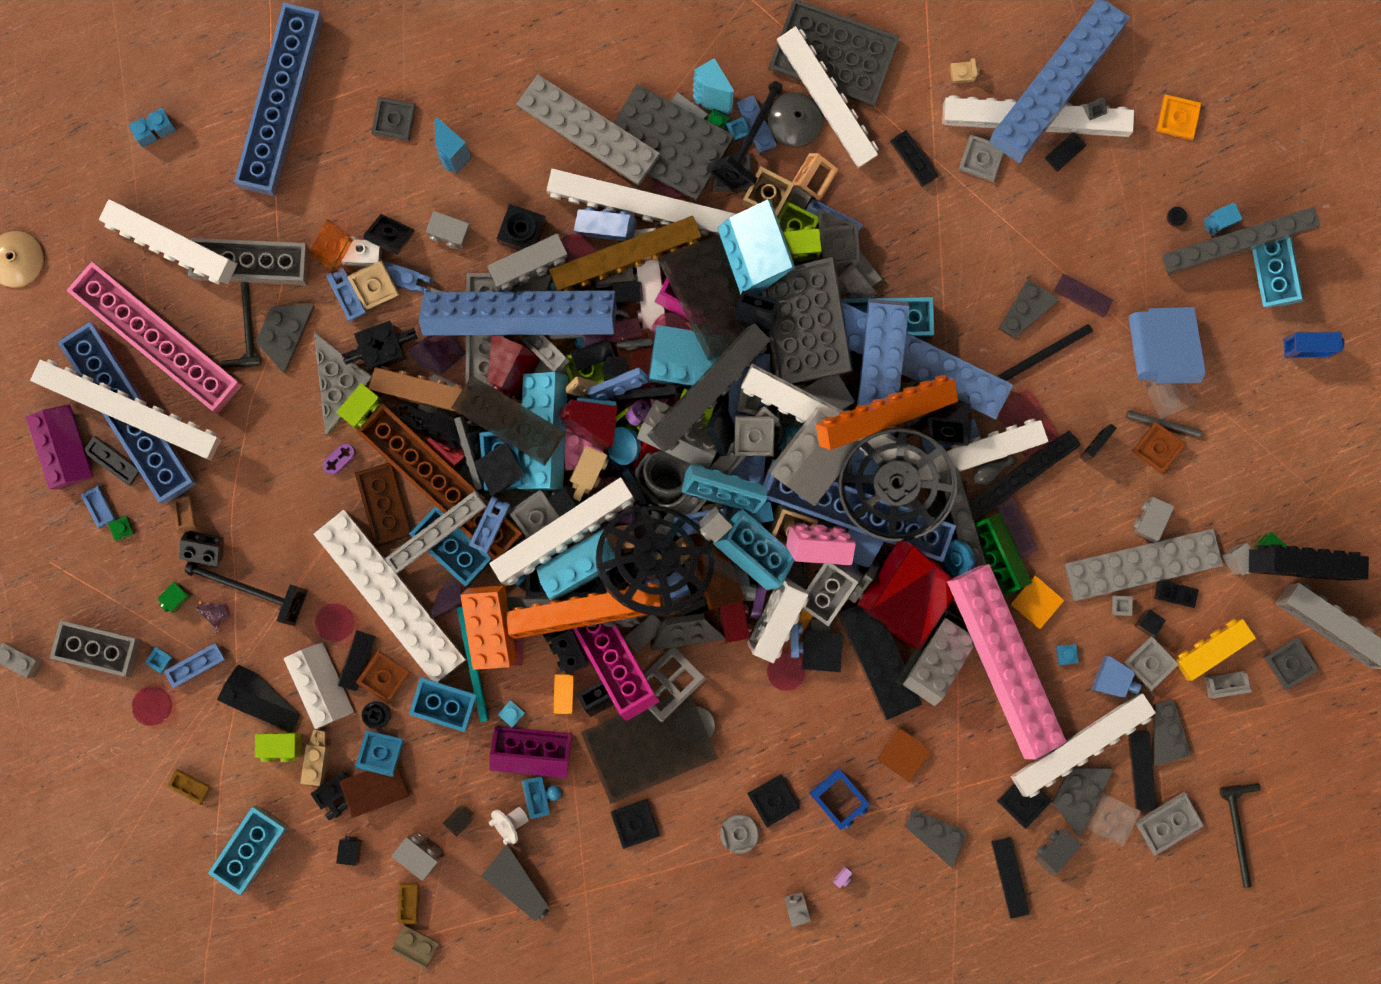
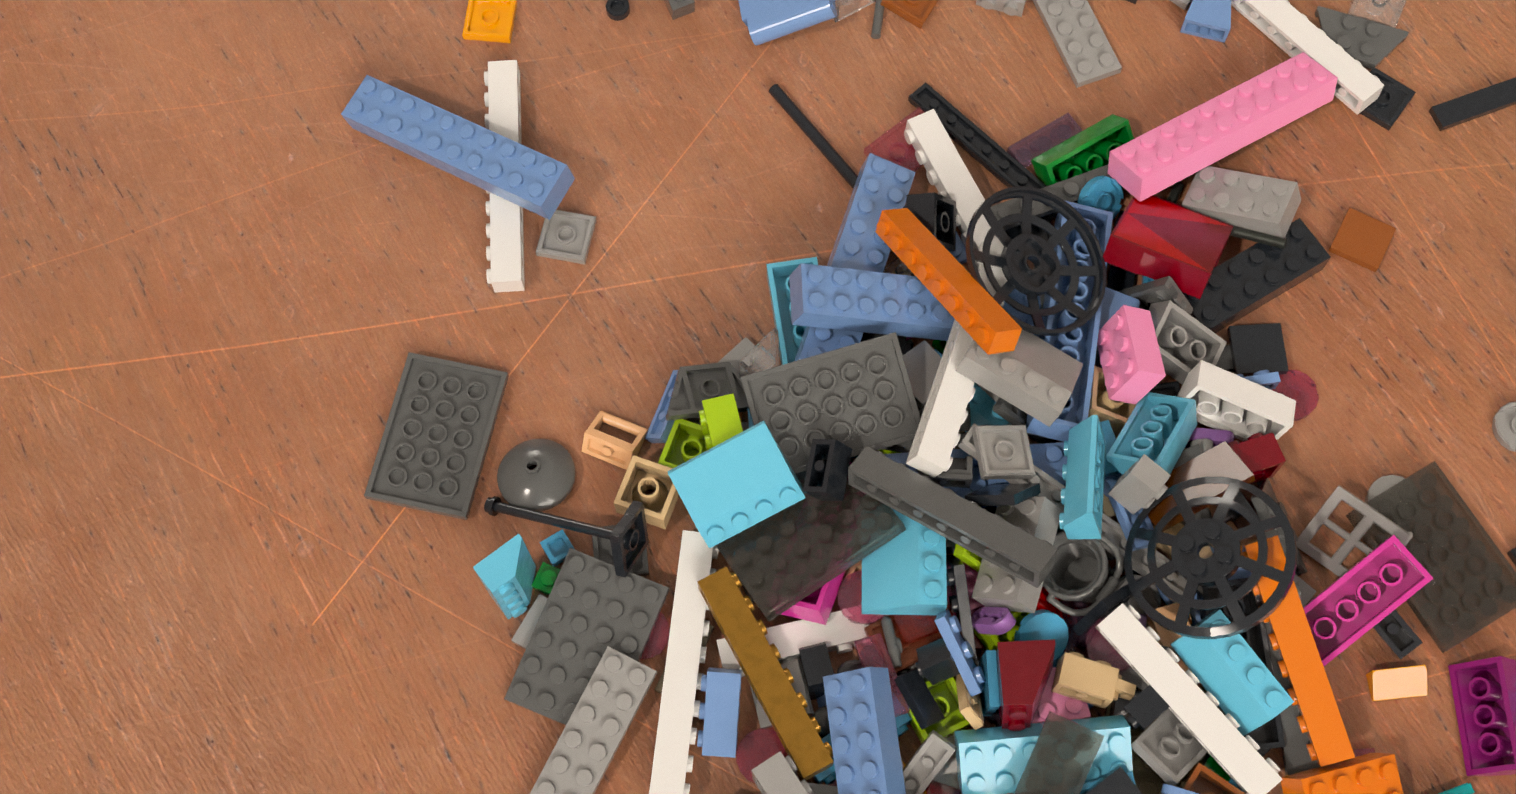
camera: 90 degrees left, 15 degrees down
(511, 713) = (1443, 754): medium azure plate -> none
(571, 650) = (1349, 677): black brick -> none
(749, 110) = (535, 532): medium blue plate -> none
(773, 800) = (1464, 389): black tile -> none
(799, 198) = (649, 450): light grey plate -> none
(827, 97) = (502, 432): white brick -> none
(828, 782) = (1427, 324): blue window -> none
(914, 158) = (576, 316): black plate -> none
(937, 835) = (1451, 190): dark grey wing -> none
(964, 71) = (450, 268): tan bracket -> none
(989, 471) = (985, 182): dark grey piece -> none
(1027, 307) = (759, 162): dark grey wing -> none
(1037, 602) = (1135, 105): light orange tile -> none
(1057, 851) = (1435, 51): dark grey brick -> none
(1065, 152) = (548, 137): black slope -> none
(1067, 654) = (1189, 70): dark azure plate -> none
(1083, 295) = (732, 100): plate -> none
(1096, 108) = (490, 102): dark grey slope -> none
(1098, 442) = (922, 57): black tile -> none
(1122, 605) = (1116, 16): light grey plate -> none

